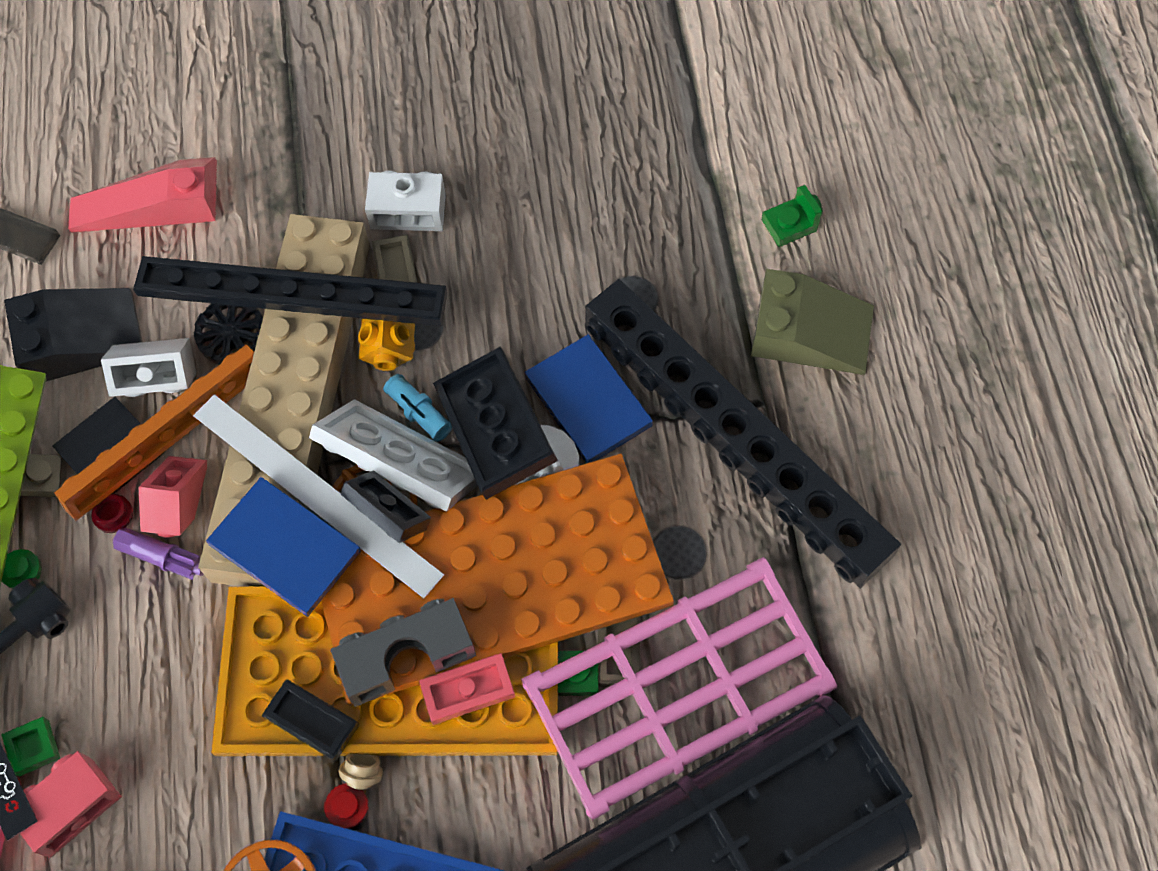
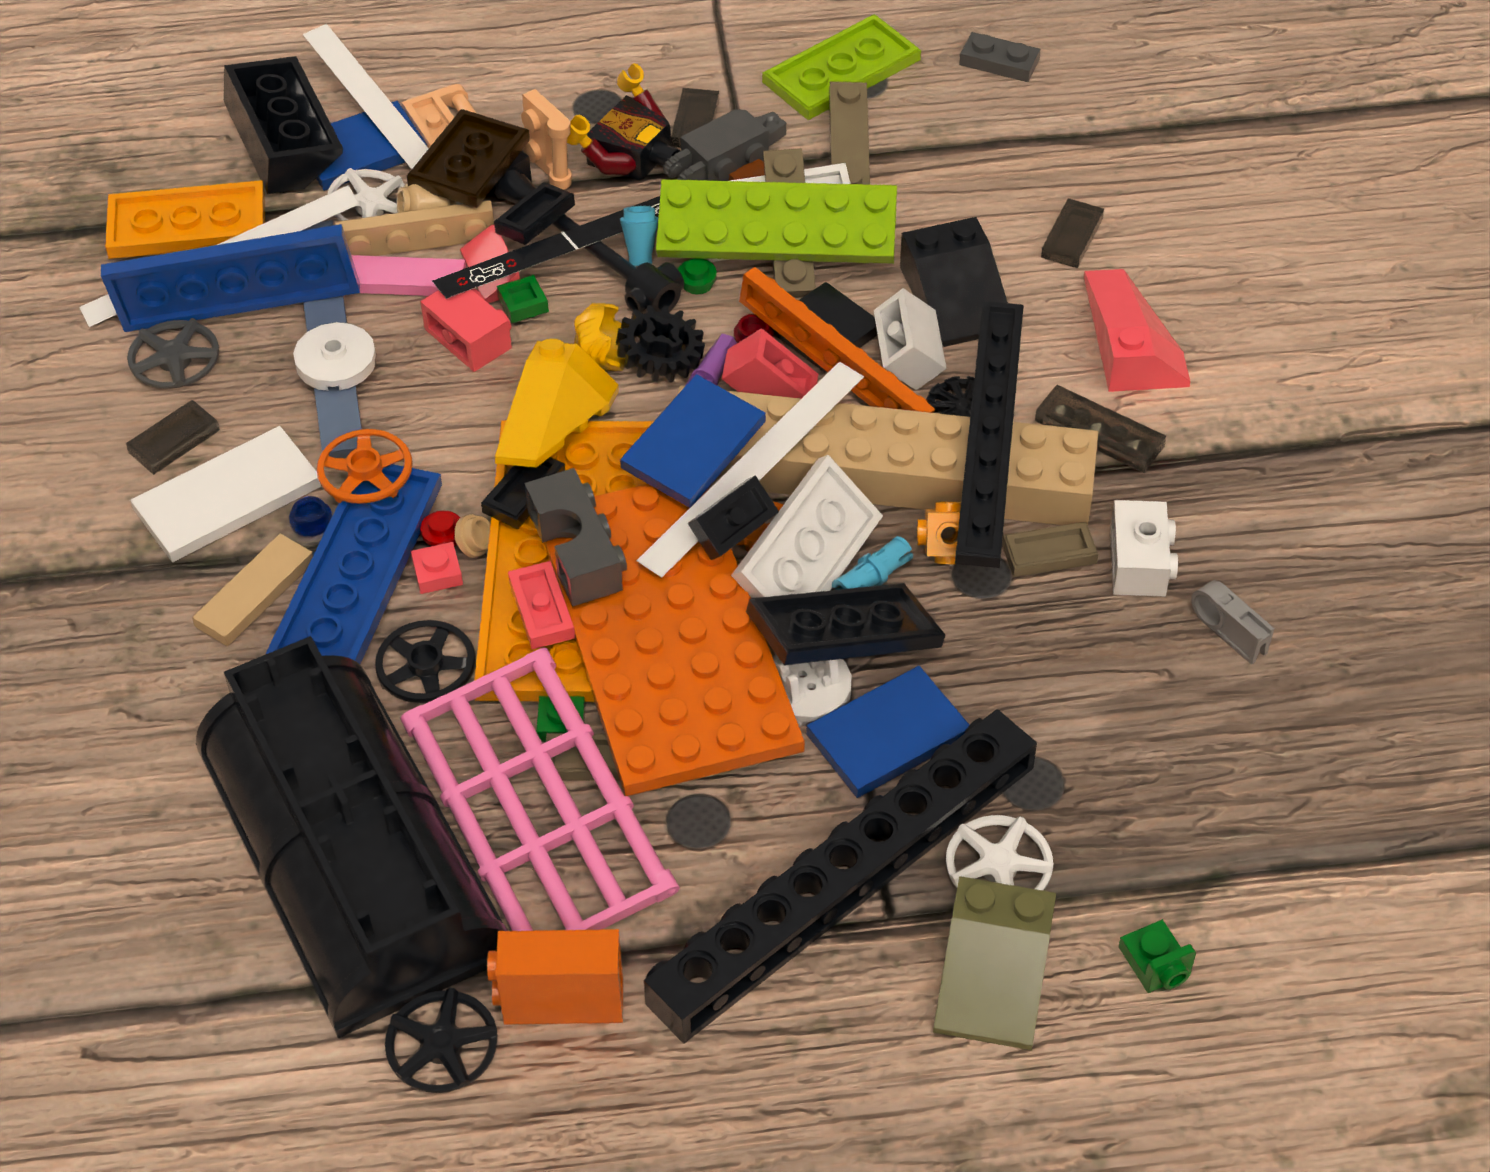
camera: 90 degrees right, 15 degrees down
(107, 660) = (597, 335): none -> yellow hair
(120, 598) = (660, 343): none -> black gear
(204, 693) = (553, 398): none -> yellow wedge
(266, 223) = (1117, 435): none -> clear smoke plate
(393, 808) = (436, 568): none -> coral plate
(482, 143) = (1232, 620): none -> light grey piece
(509, 810) = (425, 661): none -> black wheel
(713, 319) = (1000, 860): none -> white wheel
(872, 645) = (557, 976): none -> orange brick
(921, 752) = (441, 1040): none -> black wheel

